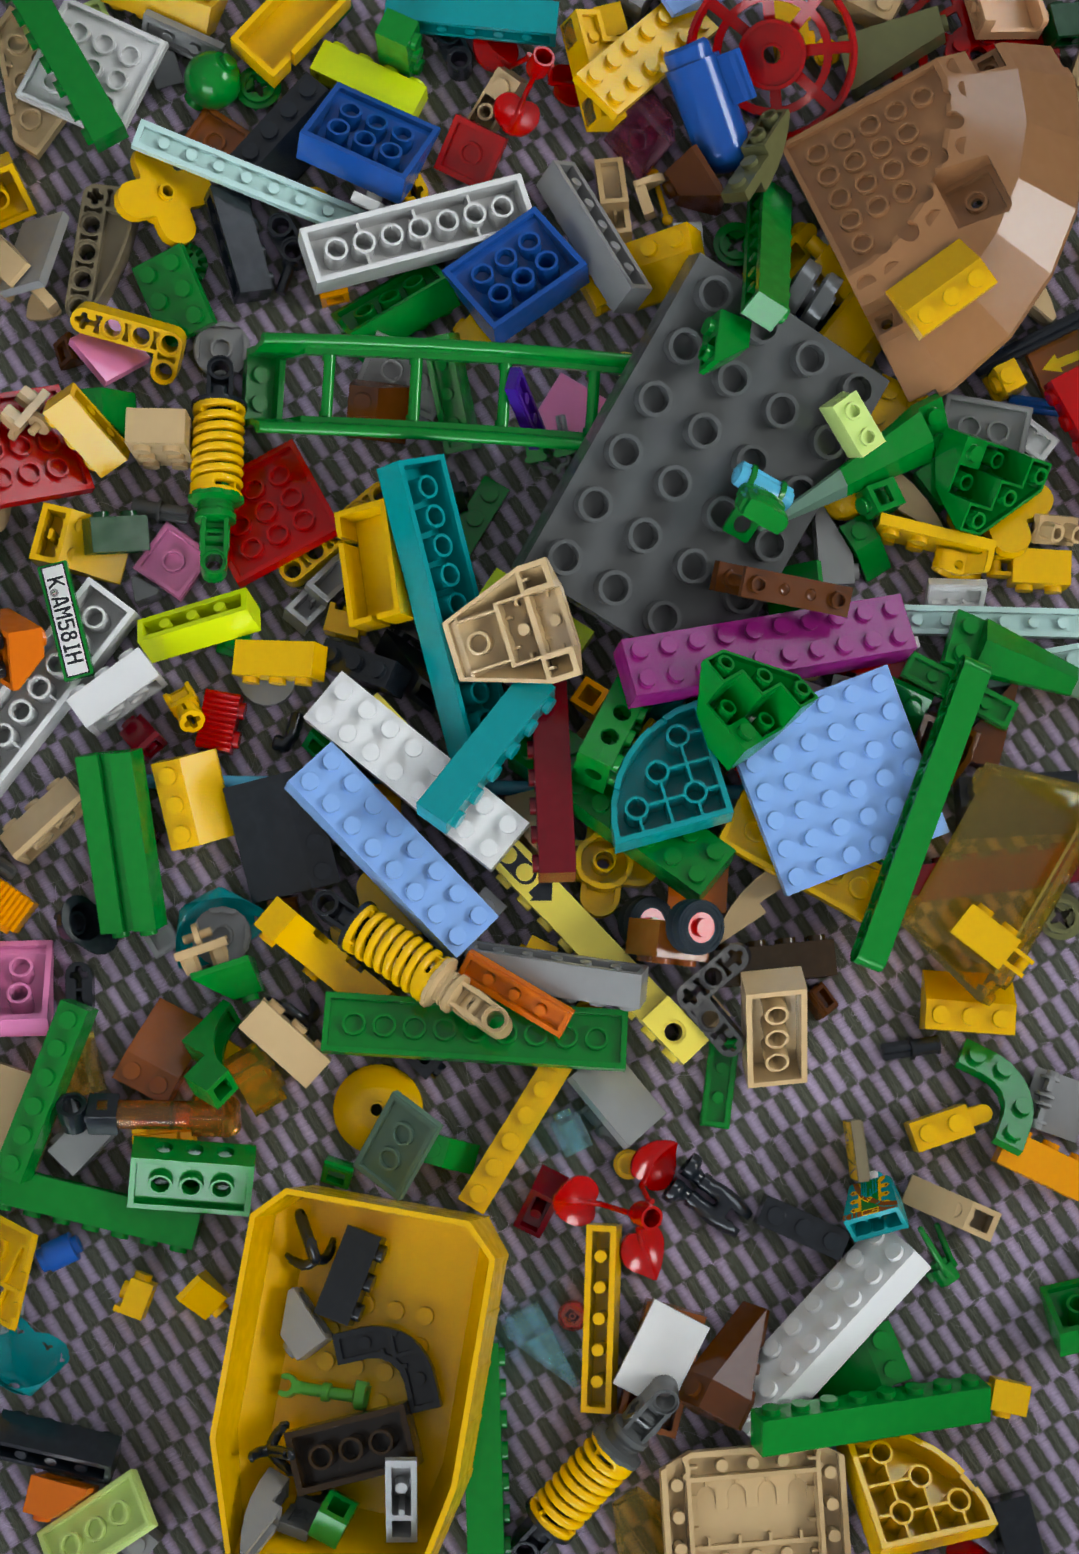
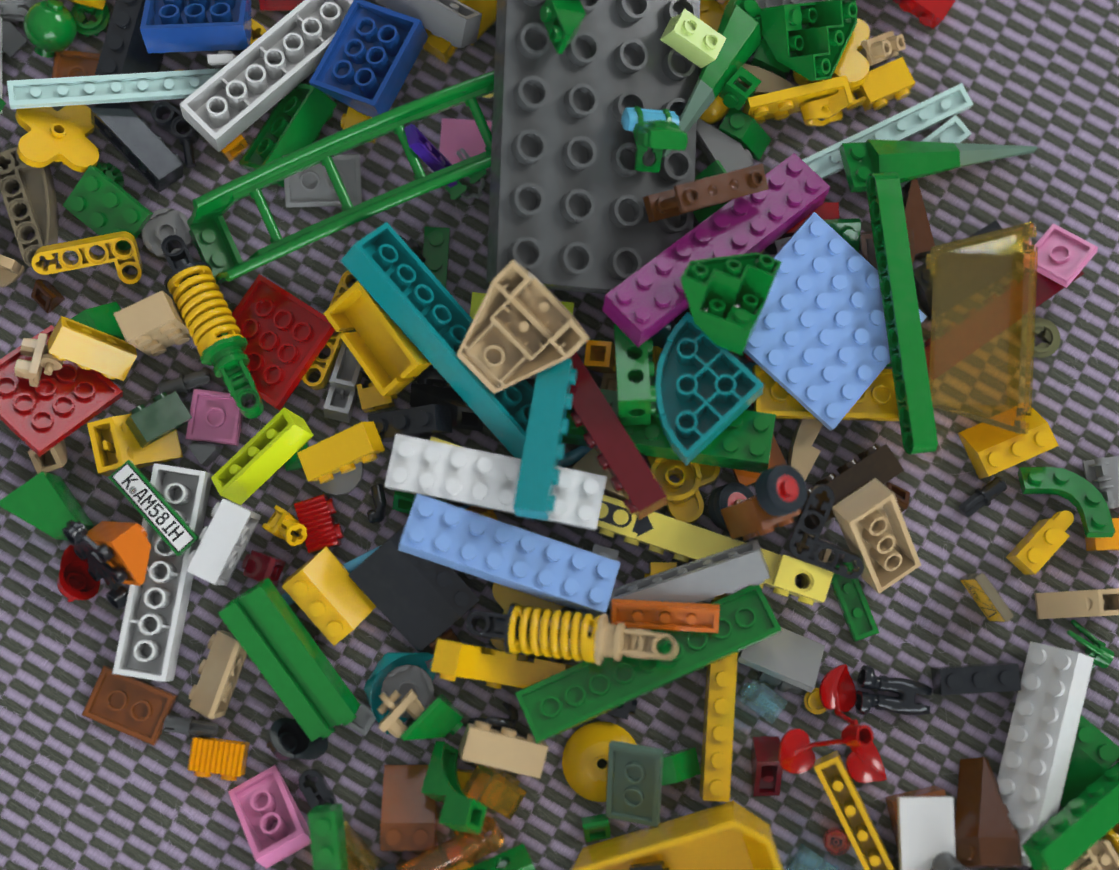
camera: 30 degrees left, 0 degrees up
(108, 359) = (81, 284): bright pink tile -> none
(378, 401) = (312, 209): reddish brown slope -> none
(452, 395) = (368, 177): green panel -> none
(874, 1208) = (1026, 636): teal torso -> none
(934, 679) = (855, 205): green tile -> none
(956, 592) = (831, 132): white plate -> none
(989, 938) = (1004, 381): yellow brick -> none

